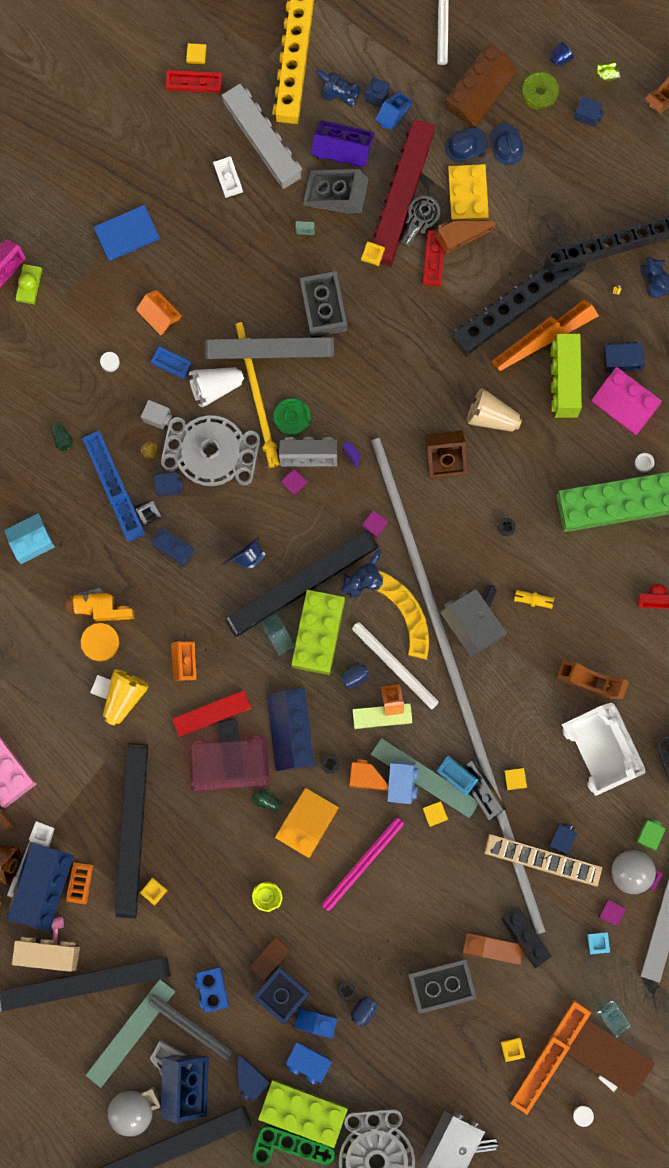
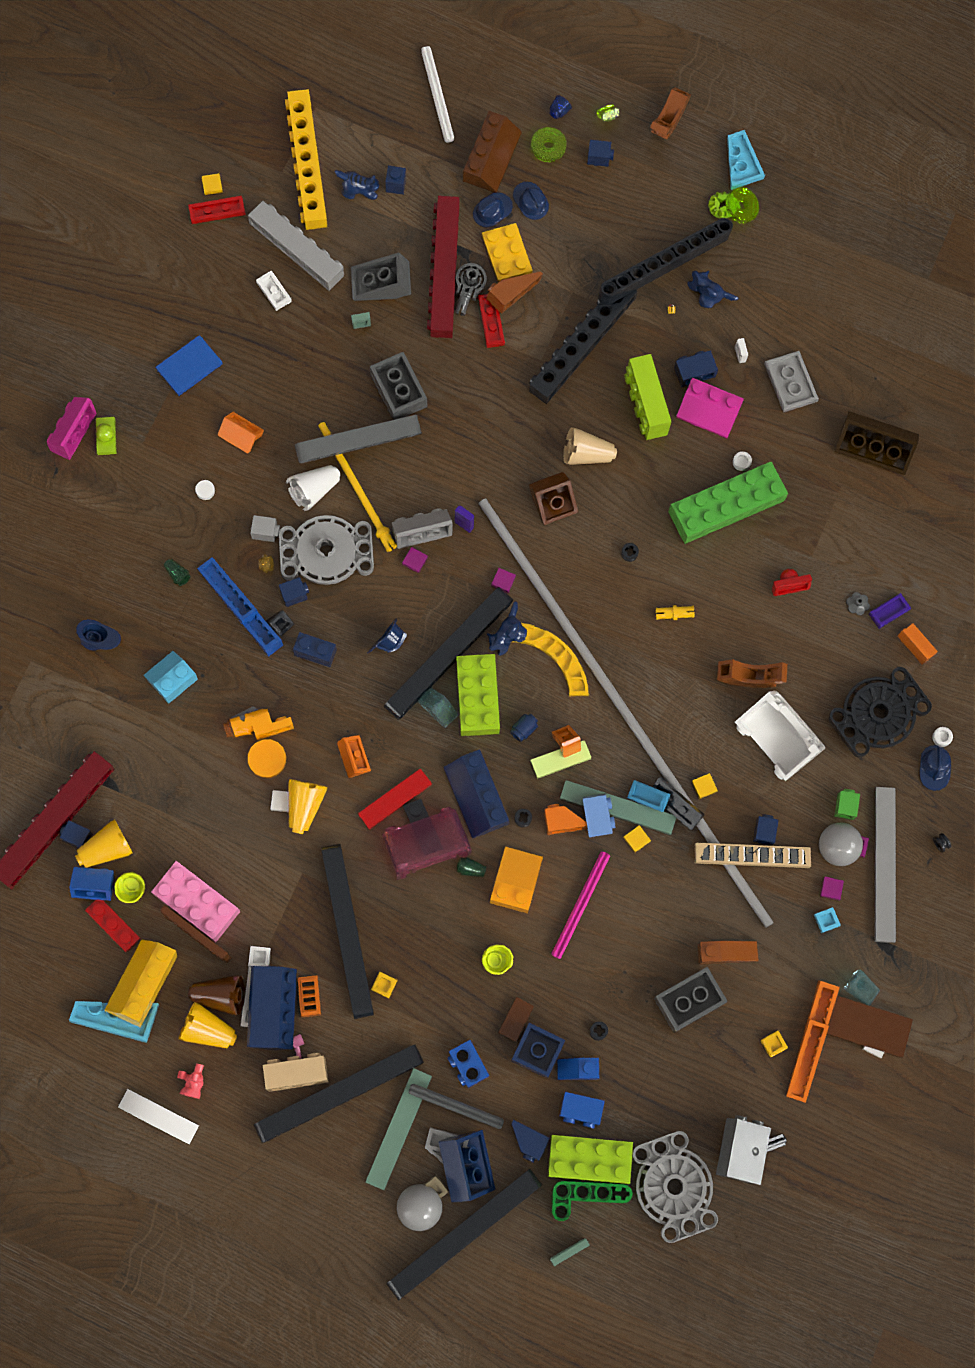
camera: 25 degrees left, 5 degrees down
(171, 362) = (265, 476): blue tile -> none
(292, 417) = (396, 499): green tile -> none
(342, 143) = (375, 235): dark purple slope -> none
(364, 1011) = (621, 1045): dark blue brick -> none
(373, 253) = (433, 327): yellow tile -> none
(393, 110) = (415, 193): blue slope -> none
(395, 665) = (559, 708): white axle -> none
(474, 620) = (624, 645): dark grey piece -> none
(526, 937) = (757, 933): black plate -> none
(546, 333) = (616, 364): orange slope -> none
(583, 1116) = (859, 1089): white tile -> none

